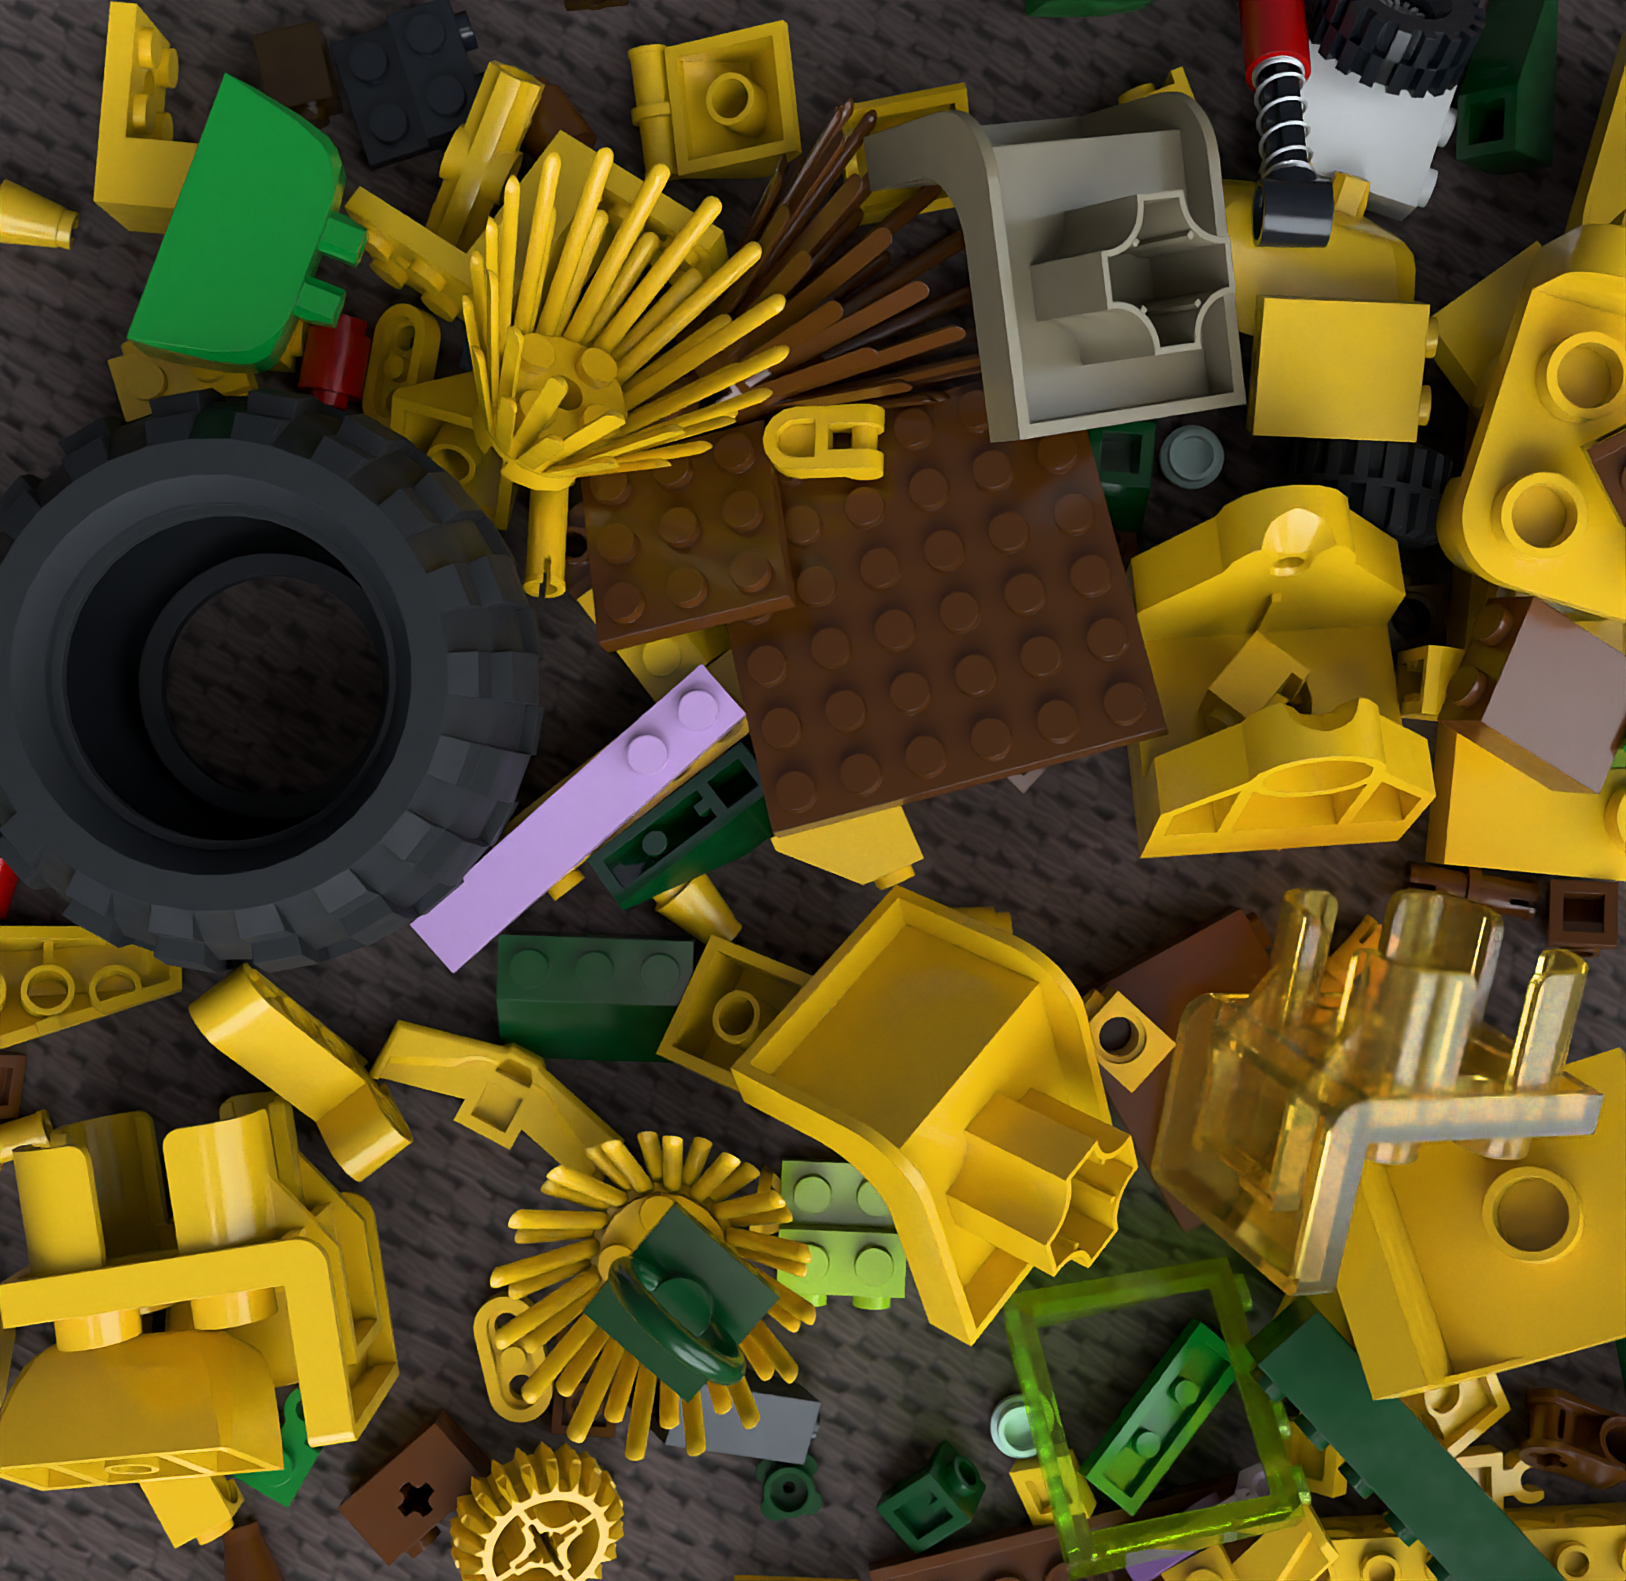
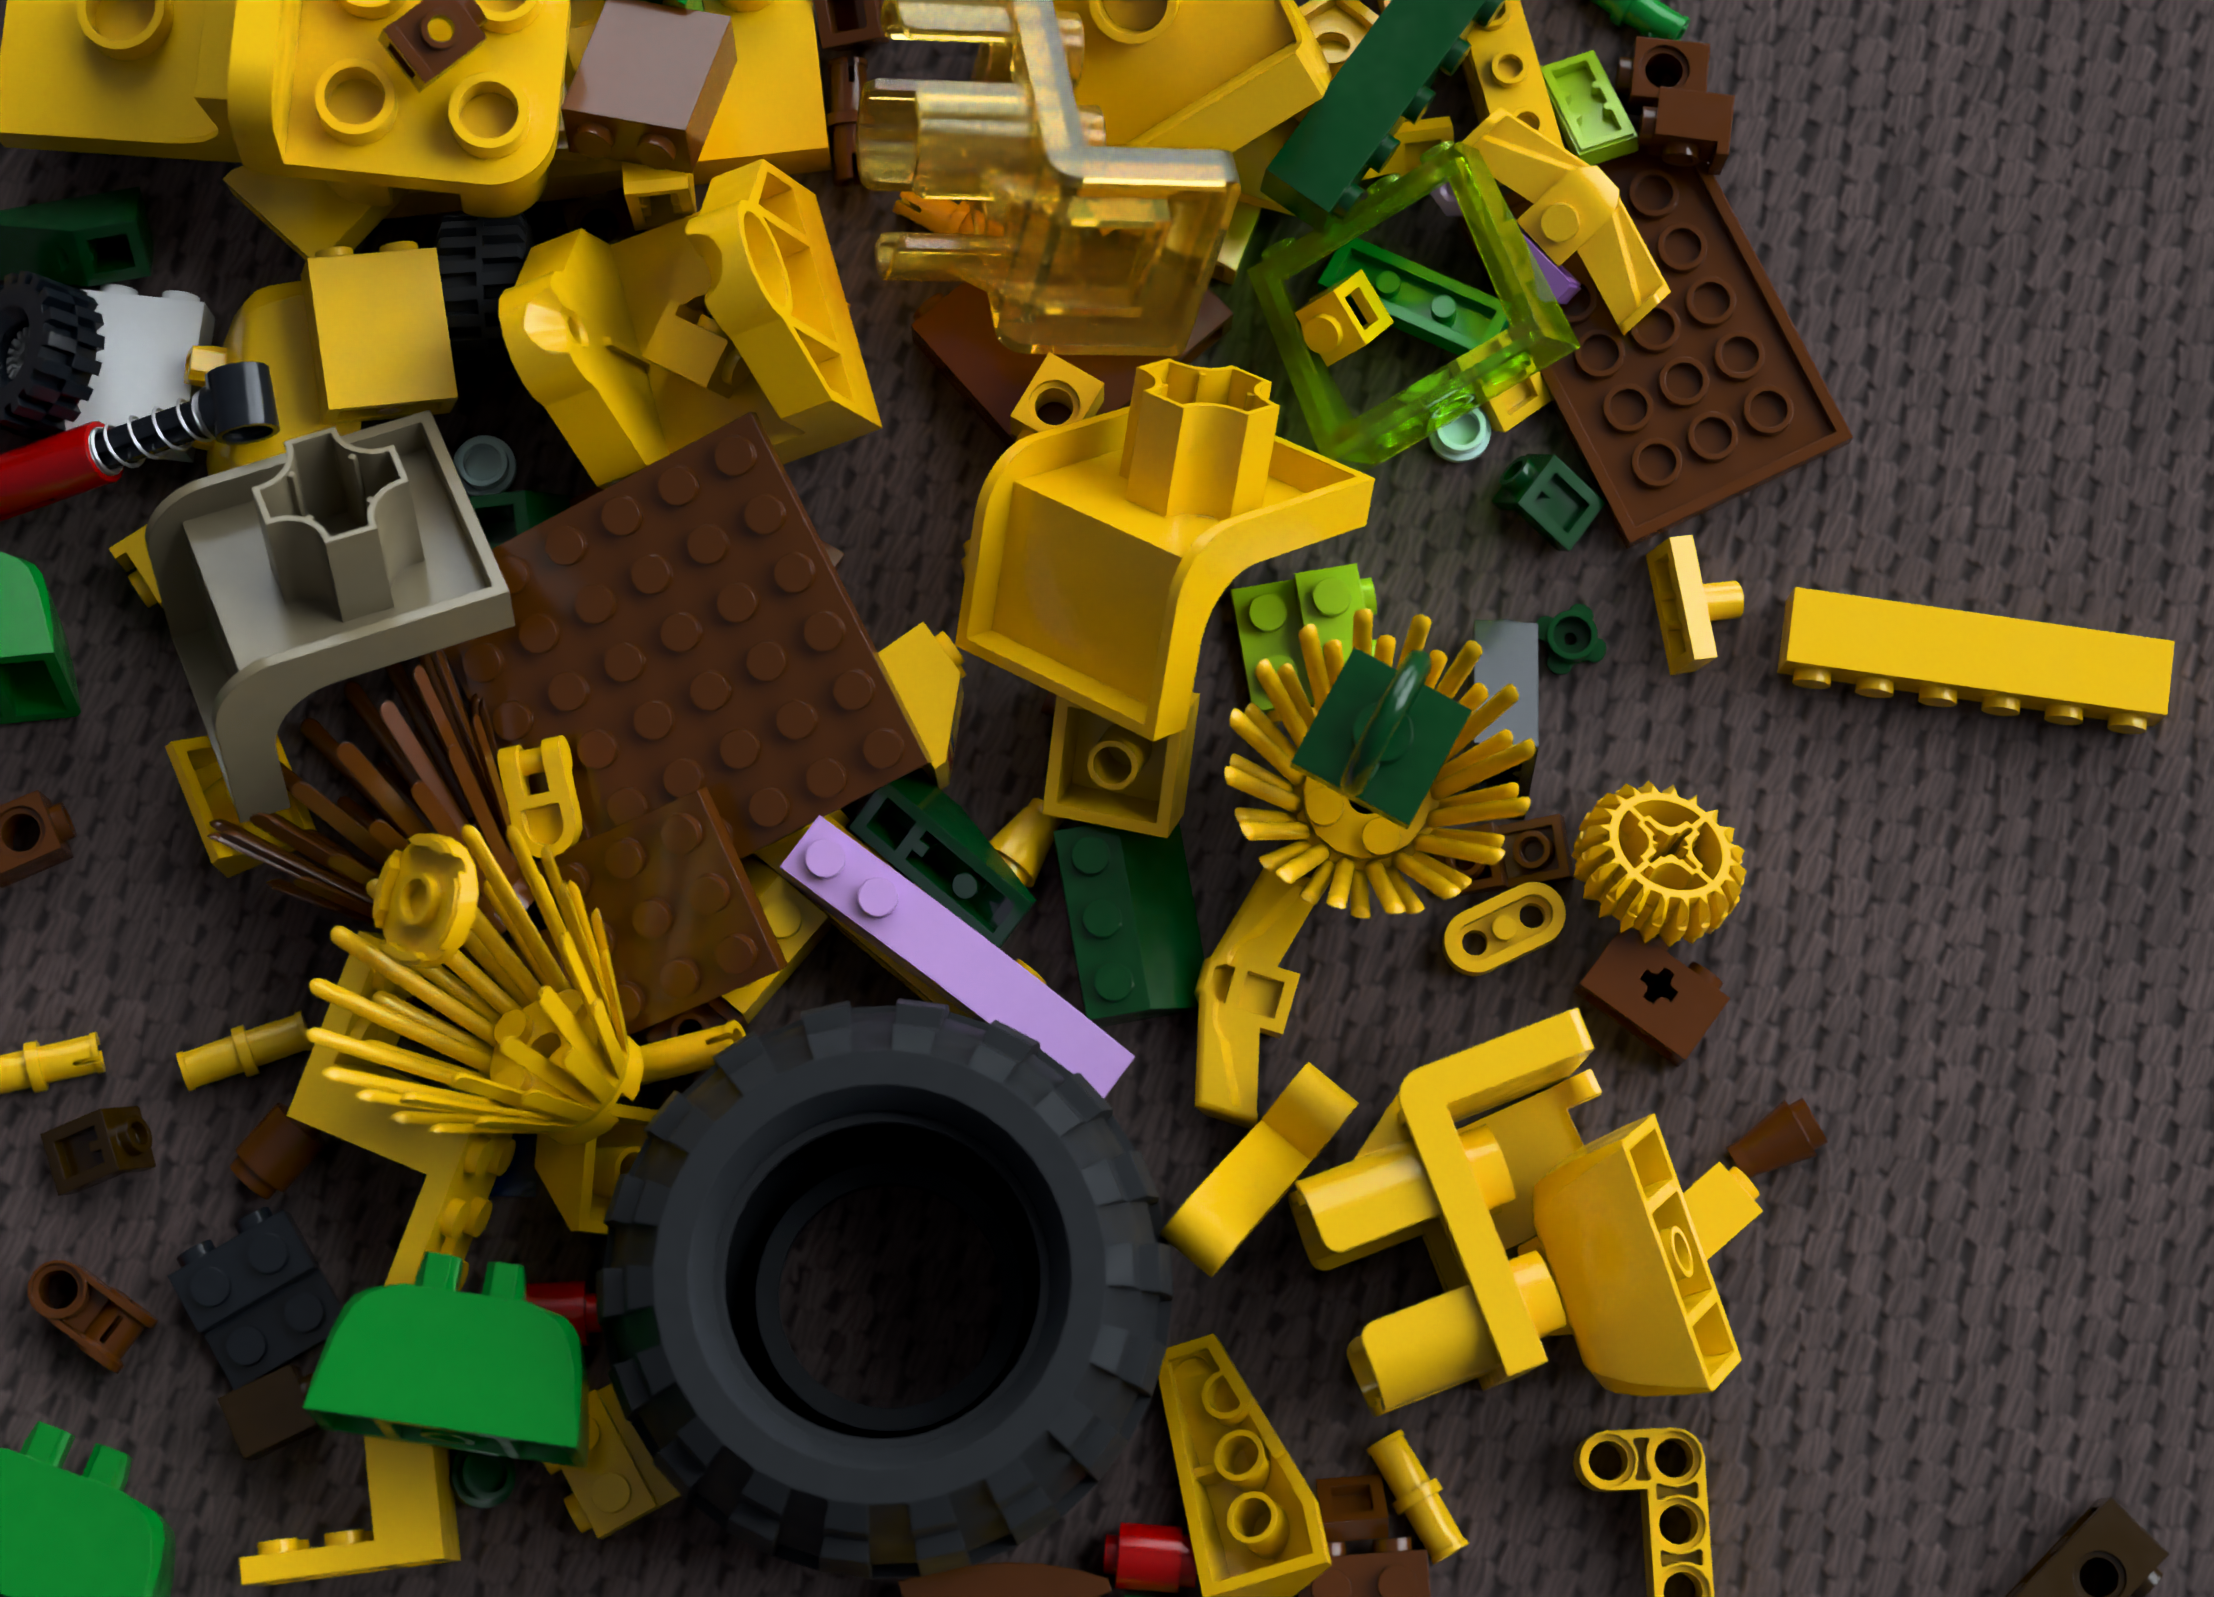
camera: 110 degrees left, 10 degrees down
(297, 1457) = (1677, 1127): green plate -> none
(394, 362) = (550, 1250): yellow plate -> none
(484, 154) = (320, 1199): yellow piece -> none
(716, 294) = (426, 901): none -> yellow tile
(733, 103) = (222, 969): yellow slope -> none
(1152, 1331) = (1332, 326): none -> yellow brick

